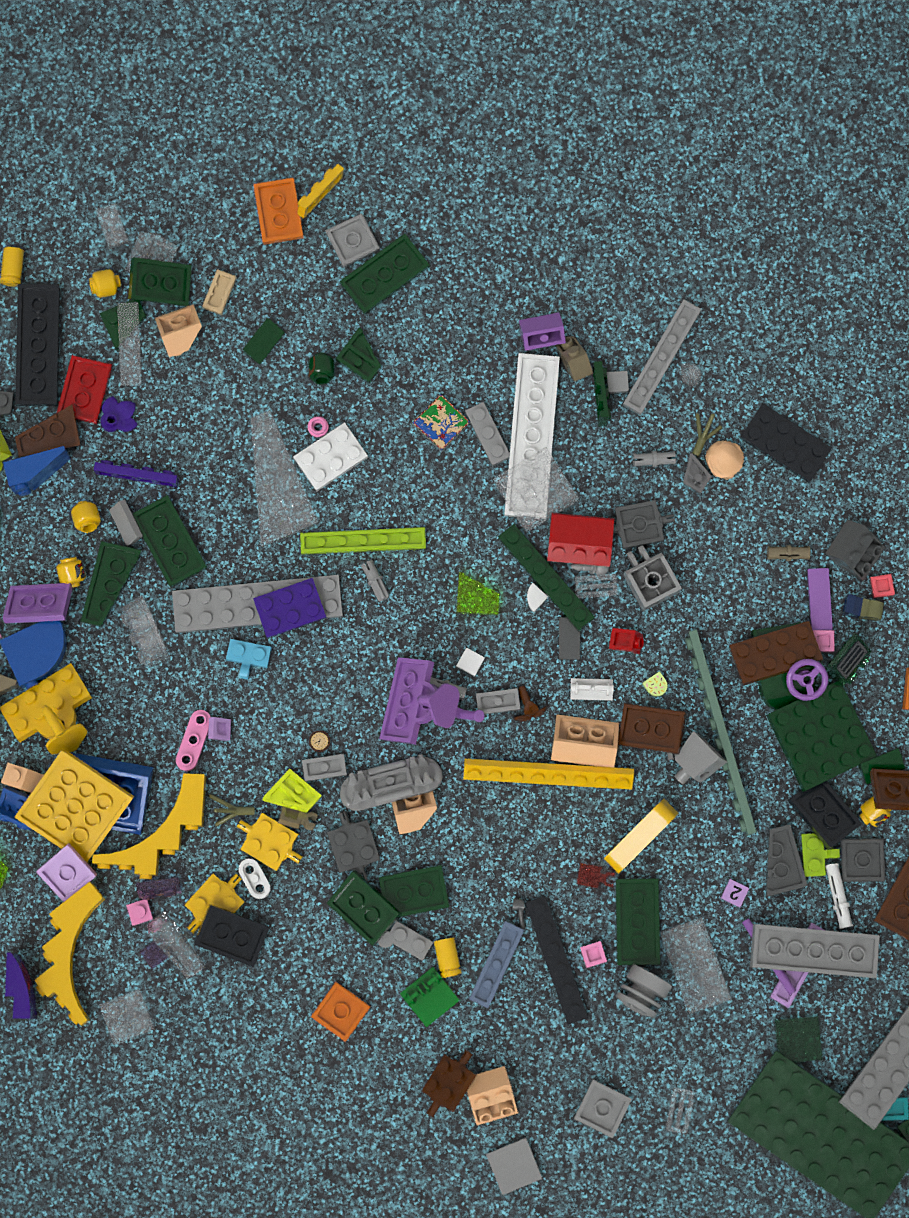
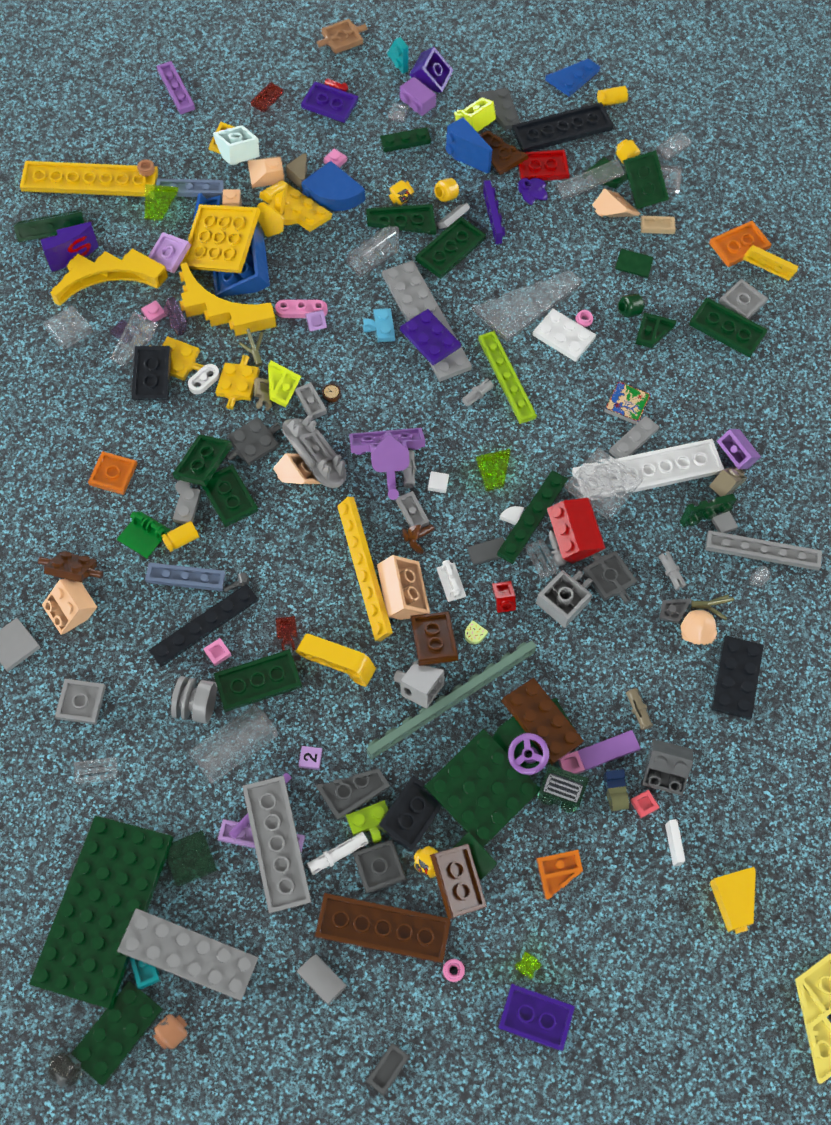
camera: 70 degrees right, 15 degrees down
(37, 603) = (368, 176): medium lavender plate -> none

